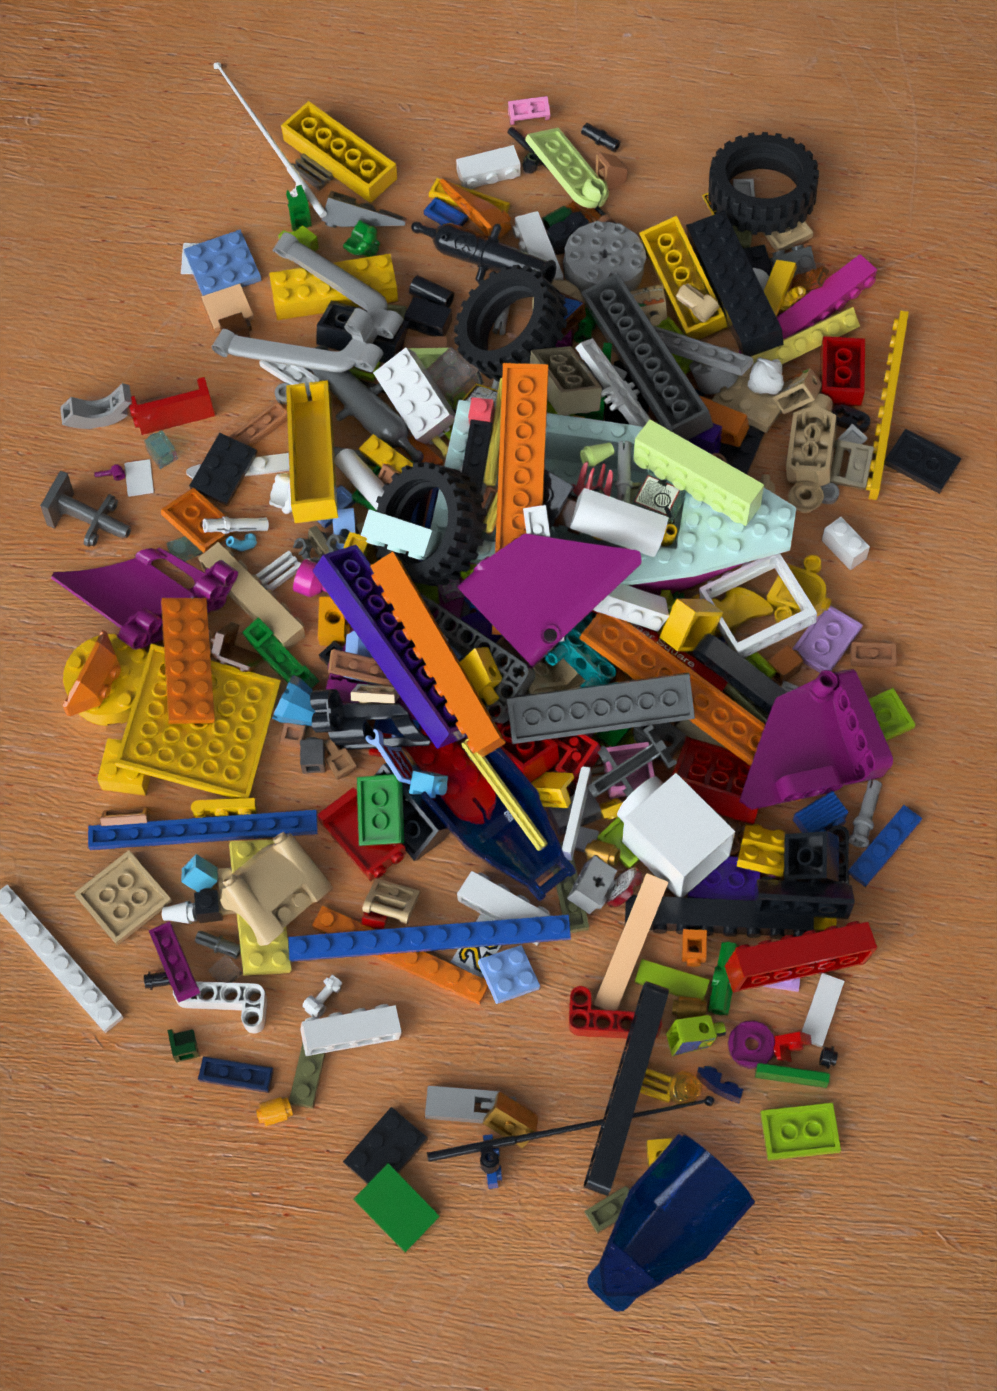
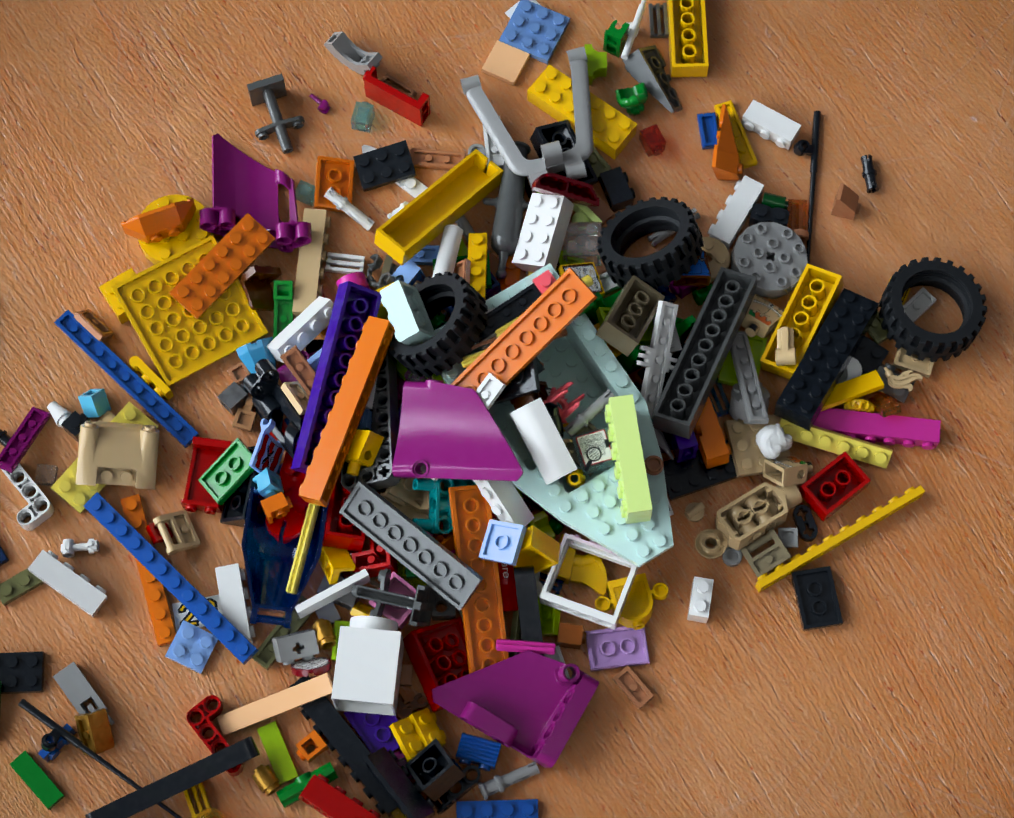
camera: 45 degrees right, 5 degrees up
(123, 897) = (40, 372): tan plate -> none
(139, 477) = (333, 122): white sticker -> none
(219, 944) = (58, 454): dark grey axle -> none
(236, 324) = (492, 81): reddish brown brick -> none
(249, 542) = (341, 225): medium azure arm -> none
(312, 644) = (303, 328): none -> white brick
(394, 341) = (572, 189): none -> dark red brick
(414, 257) = (652, 140): none -> clear red brick
(431, 291) = (637, 174): black pin -> none
(457, 792) = (276, 506): none -> orange brick
(483, 250) = (698, 184): black piece -> none
(507, 1209) = (37, 780): none -> green tile
(528, 109) = (841, 110): bright pink hinge -> none
(569, 167) = (821, 174): yellowish green plate -> none
(596, 453) = (586, 382): yellowish green cone -> none
(668, 634) = (502, 542): none -> light blue plate
(693, 1034) = (242, 791): lime torso -> none
(768, 699) = (522, 646): none -> dark pink axle
(801, 251) = (903, 380): none -> tan piece
(891, 714) = (593, 734): lime plate -> none

